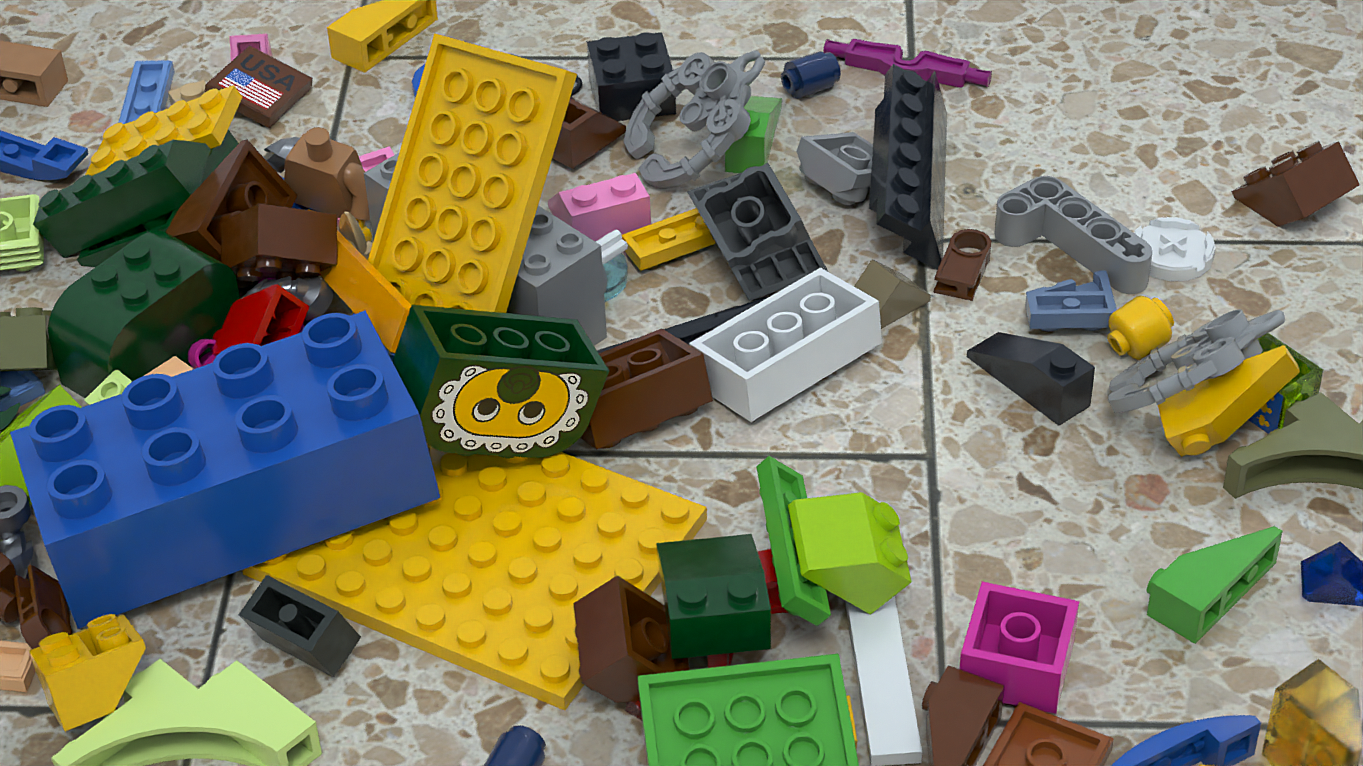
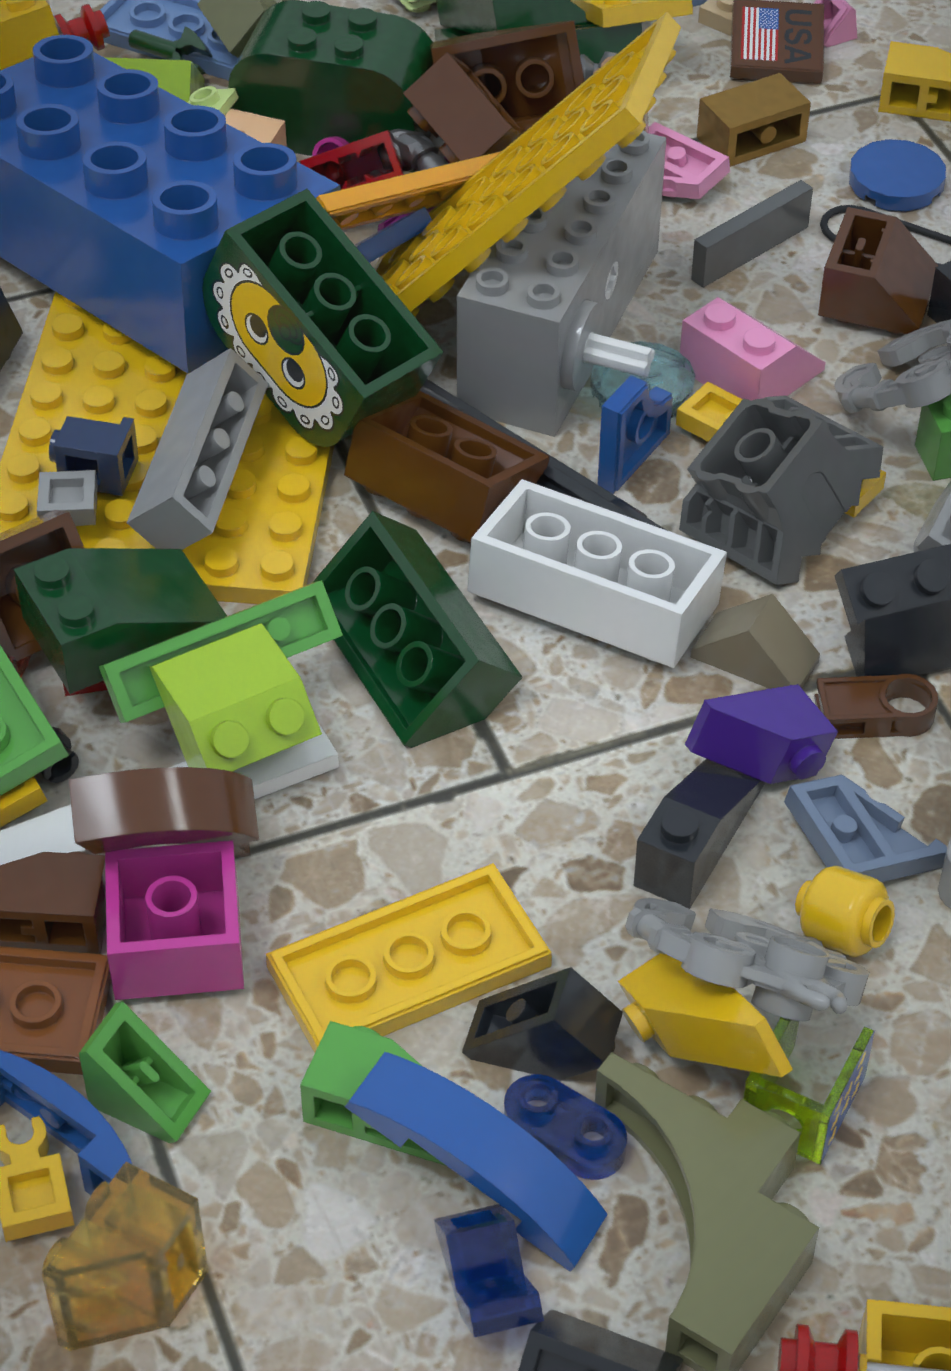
camera: 65 degrees right, 5 degrees up
(345, 116) = (754, 119): none -> pearl gold brick
(511, 571) = (98, 447): none -> brick
(548, 601) = (69, 492): none -> light grey plate
(559, 504) = (198, 453): none -> light grey brick
(658, 280) = (631, 429): none -> blue tile
(829, 448) = (413, 634): none -> dark green slope
(955, 602) = (163, 808): none -> reddish brown arch
(982, 309) = (764, 734): none -> dark purple slope
(1085, 547) = (410, 957): none -> yellow tile
(1140, 709) = (139, 1077): none -> bright green slope
(1178, 493) = (545, 1027): none -> black slope
(1252, 510) = (564, 1122): none -> clear blue plate
(1258, 544) = (485, 1150): none -> blue slope

